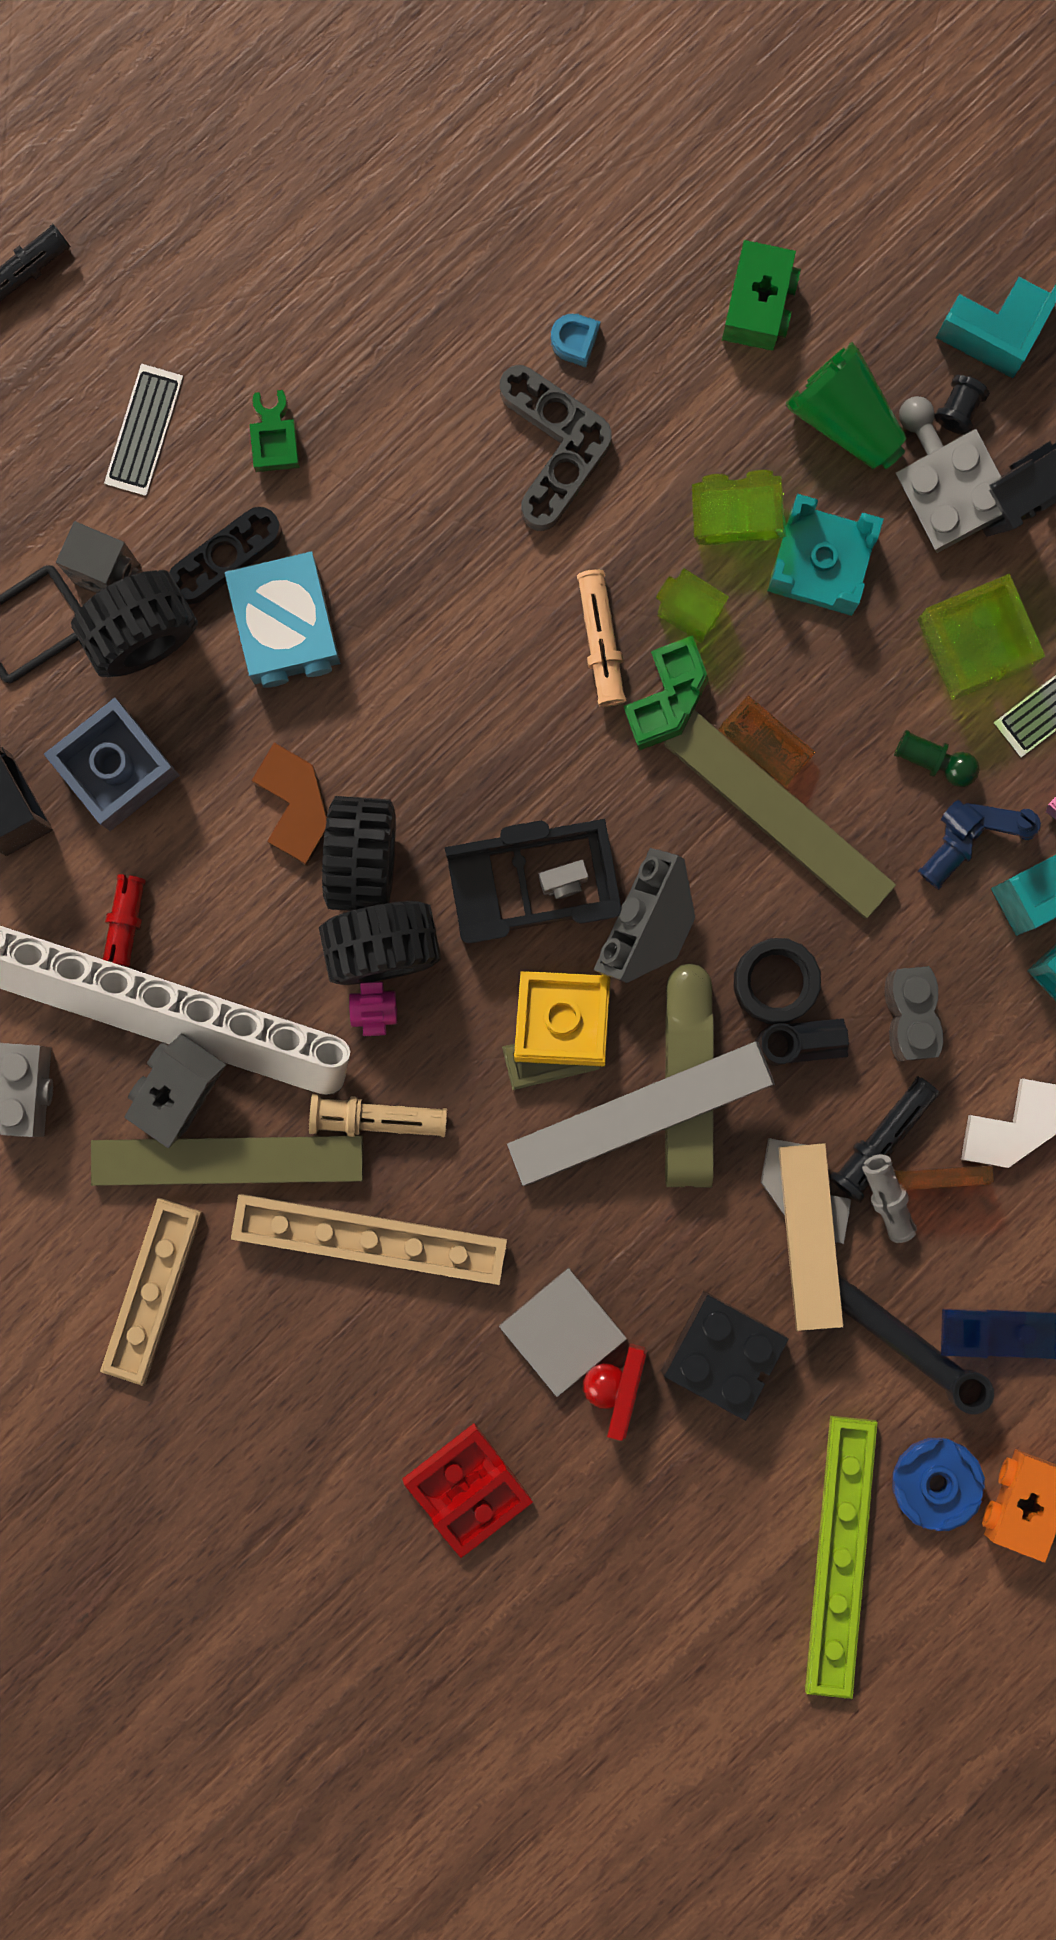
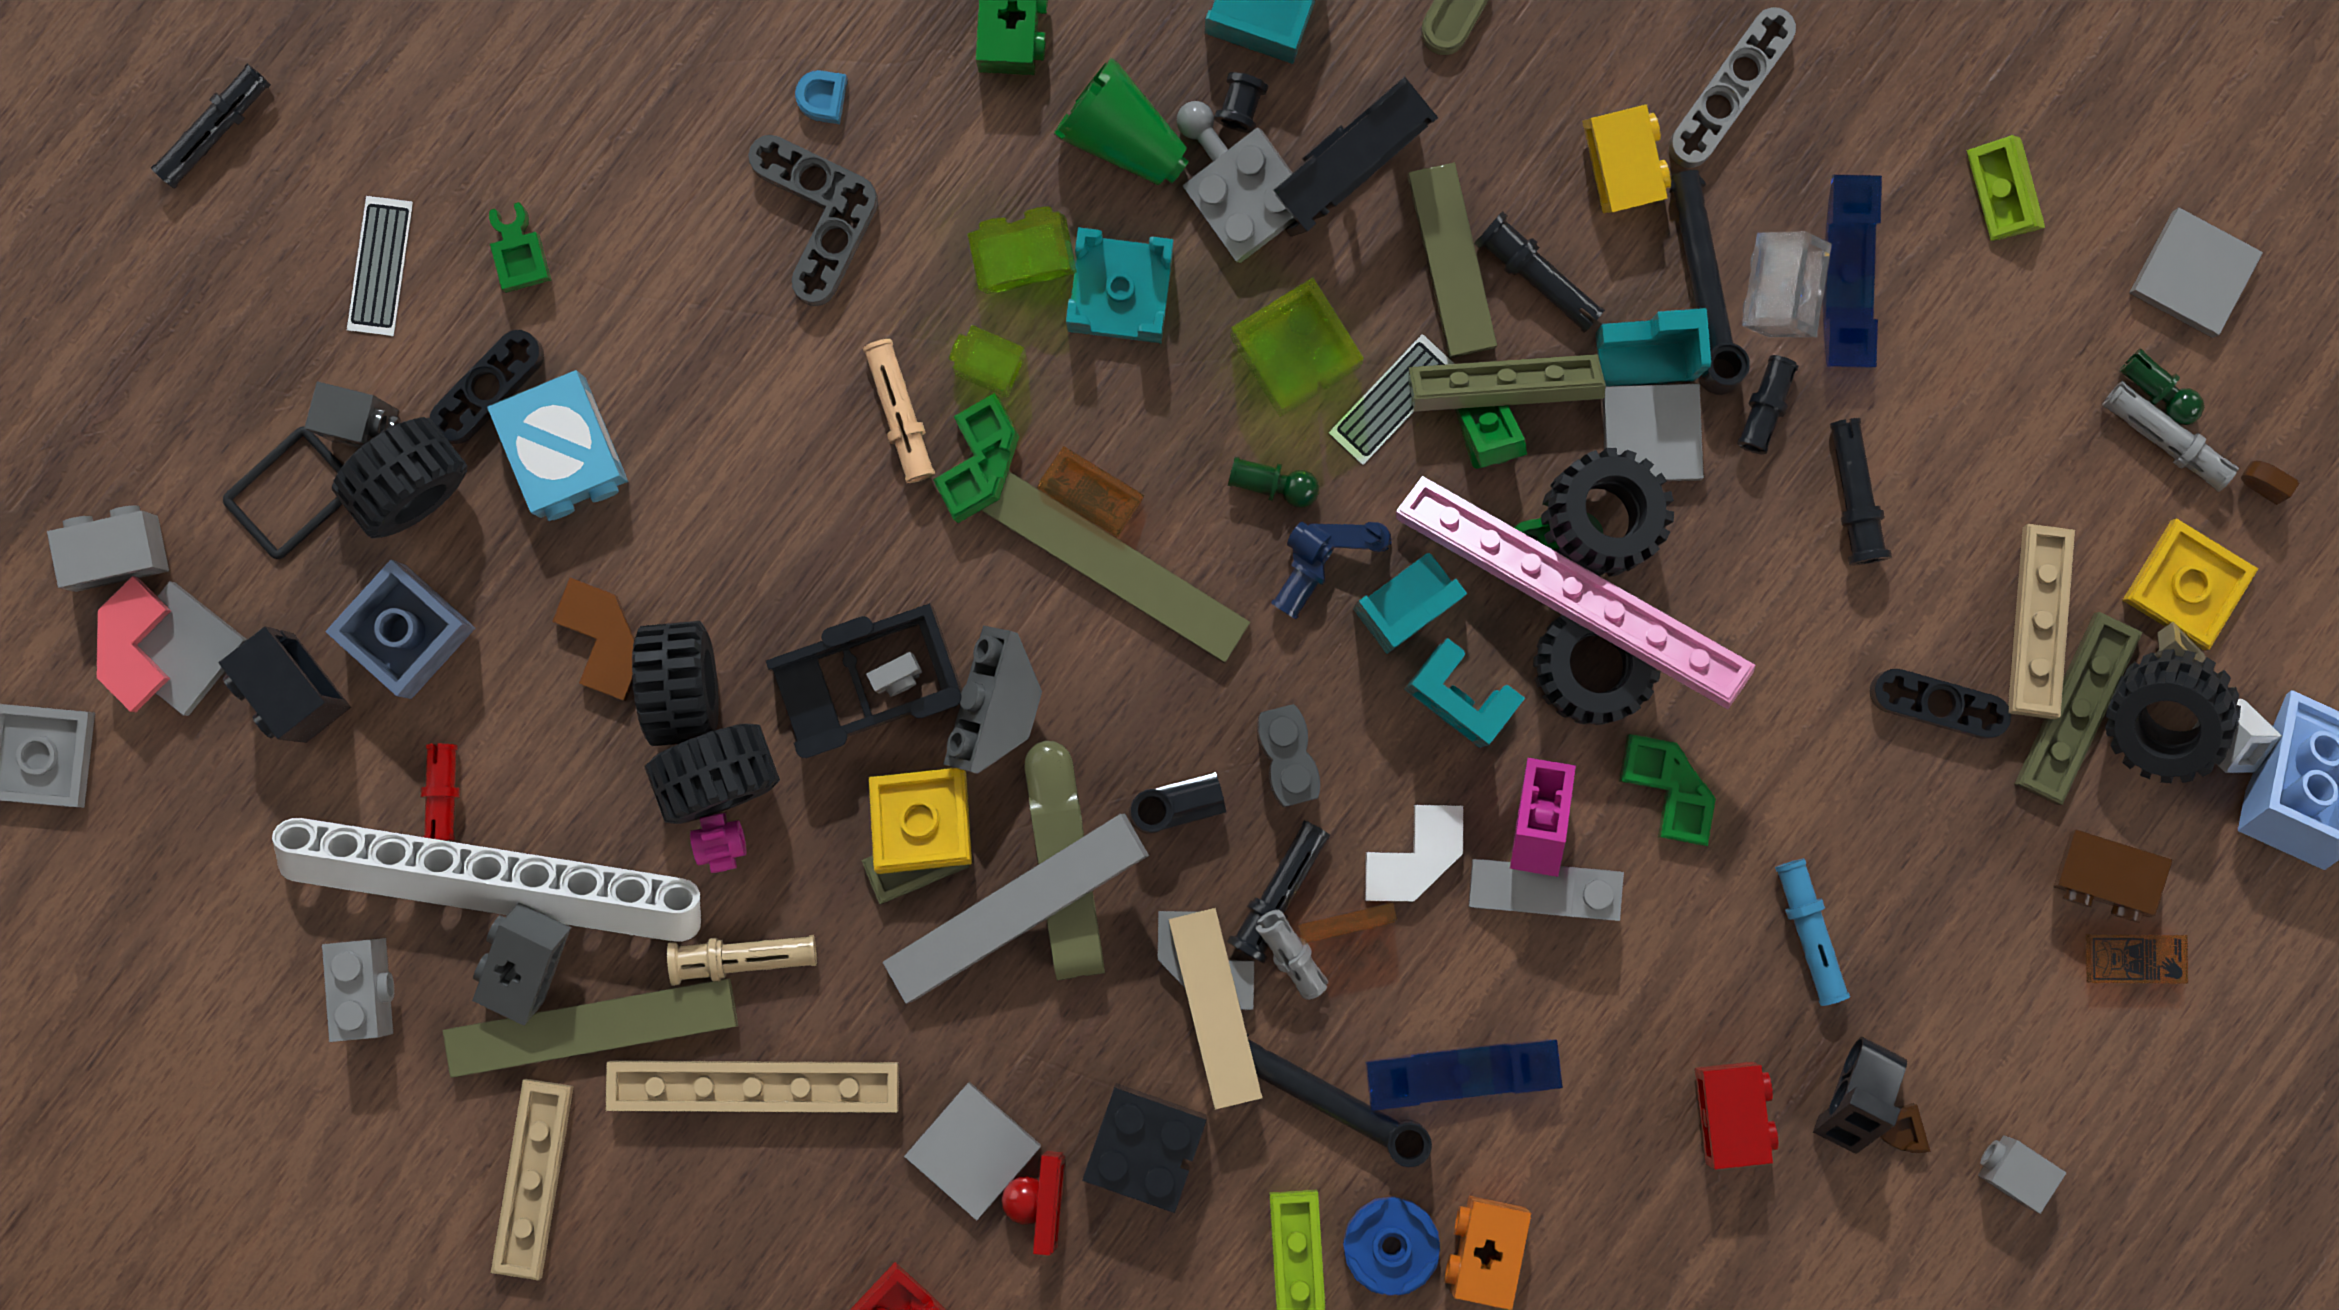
camera: 10 degrees left, 0 degrees up
(808, 967) = (1134, 708): black tyre -> none

